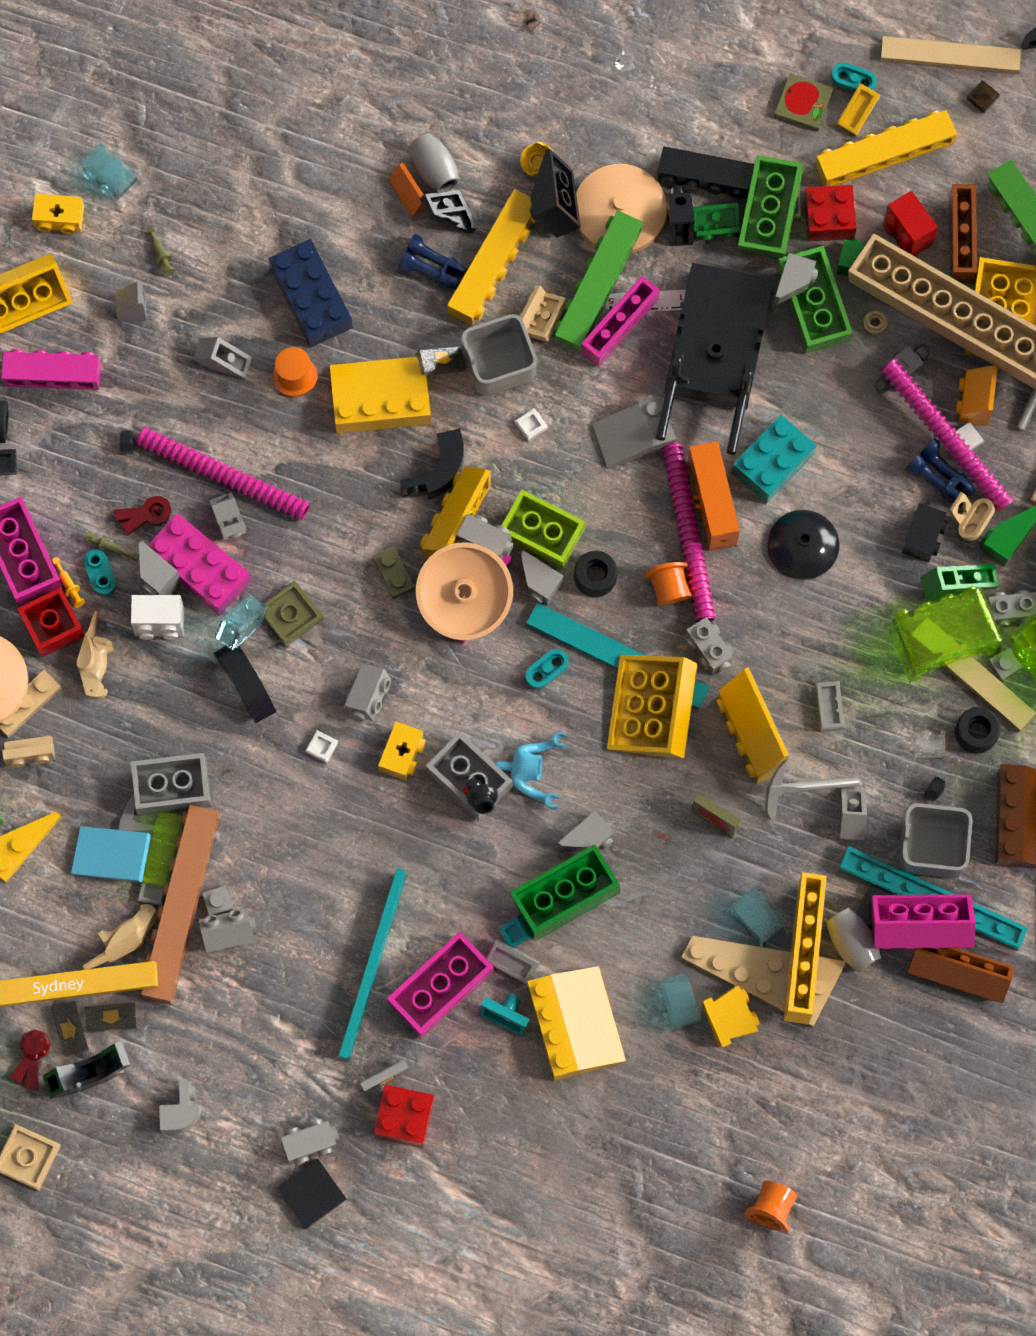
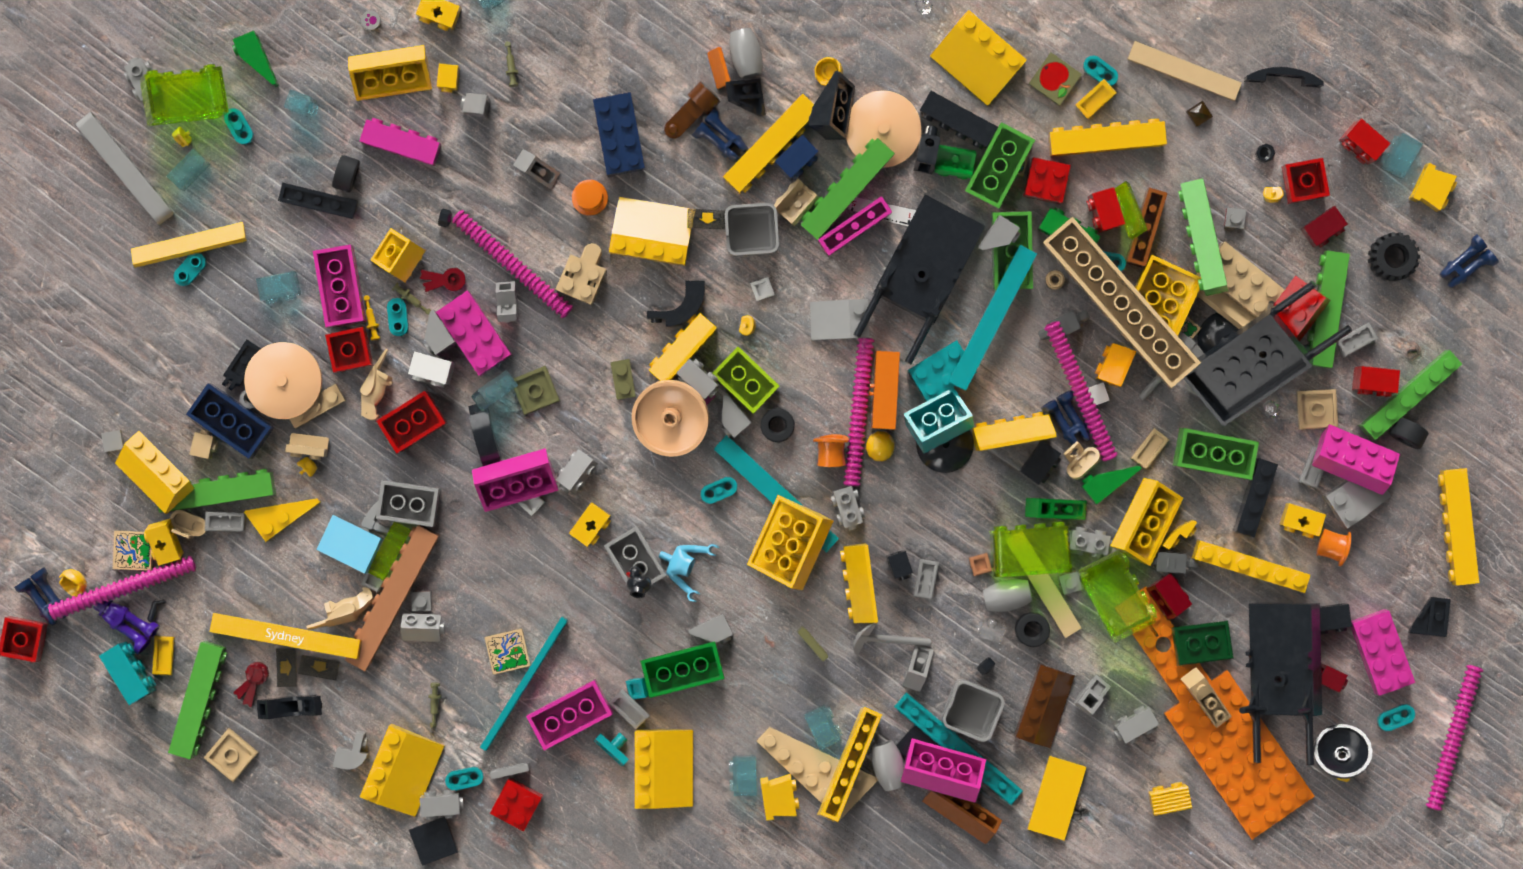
camera: 15 degrees right, 15 degrees up
(34, 776) = (308, 466): none -> yellow piece
(82, 499) = (398, 255): none -> yellow slope
(89, 283) = (448, 77): none -> yellow brick
(149, 686) = (411, 422): none -> red brick
(248, 1115) = (401, 770): none -> yellow slope
(267, 1021) = (434, 702): none -> olive piece
(295, 719) = (515, 480): none -> dark pink brick
(309, 463) = (582, 274): none -> tan brick
(329, 1102) = (465, 779): none -> teal plate
(341, 933) = (507, 651): none -> tile
(397, 228) = (701, 100): none -> reddish brown piece
(525, 470) = (747, 325): none -> yellow piece
(528, 262) = (797, 158): none -> dark blue brick
(707, 100) = (978, 58): none -> yellow slope
(726, 566) = (880, 446): none -> yellow hair
(788, 510) = (938, 420): none -> teal brick
(792, 693) = (899, 565): none -> black brick
(815, 376) = (992, 317): none -> teal tile
(882, 505) = (1013, 432): none -> yellow slope
(890, 672) = (980, 564): none -> nougat tile
(935, 696) = (1007, 595): none -> light grey piece
(948, 226) = (1132, 215): none -> clear neon green tile

